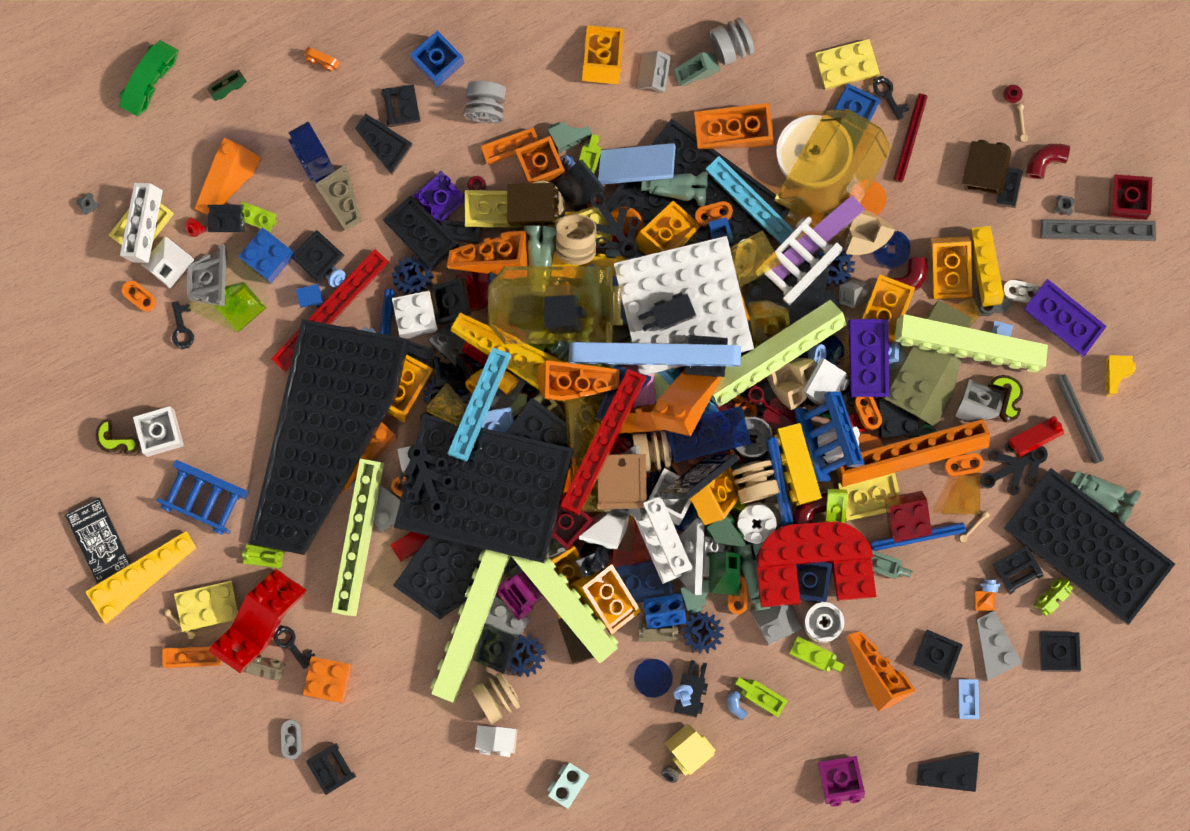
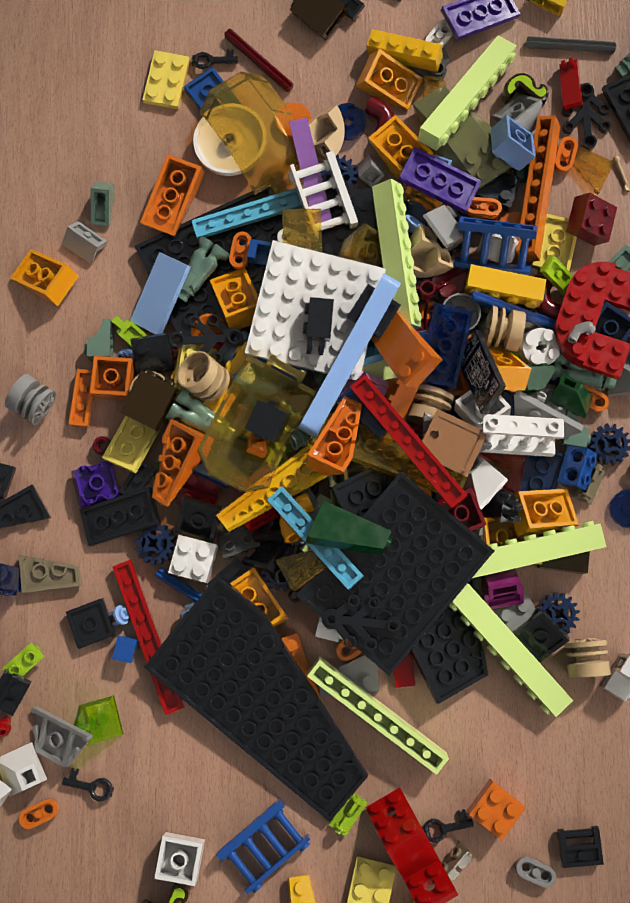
camera: 65 degrees left, 0 degrees up
(266, 255) = (64, 671): blue brick -> none
(496, 426) = (347, 531): none -> dark green slope
(536, 317) = (257, 446): none -> orange tile
(729, 42) = (94, 160): light grey wheel -> none
(786, 547) = (578, 329): none -> light grey arm
(937, 532) = (615, 197): blue axle -> none
(941, 407) = (512, 143): none -> medium blue brick
(1002, 328) = (462, 68): light blue plate -> none

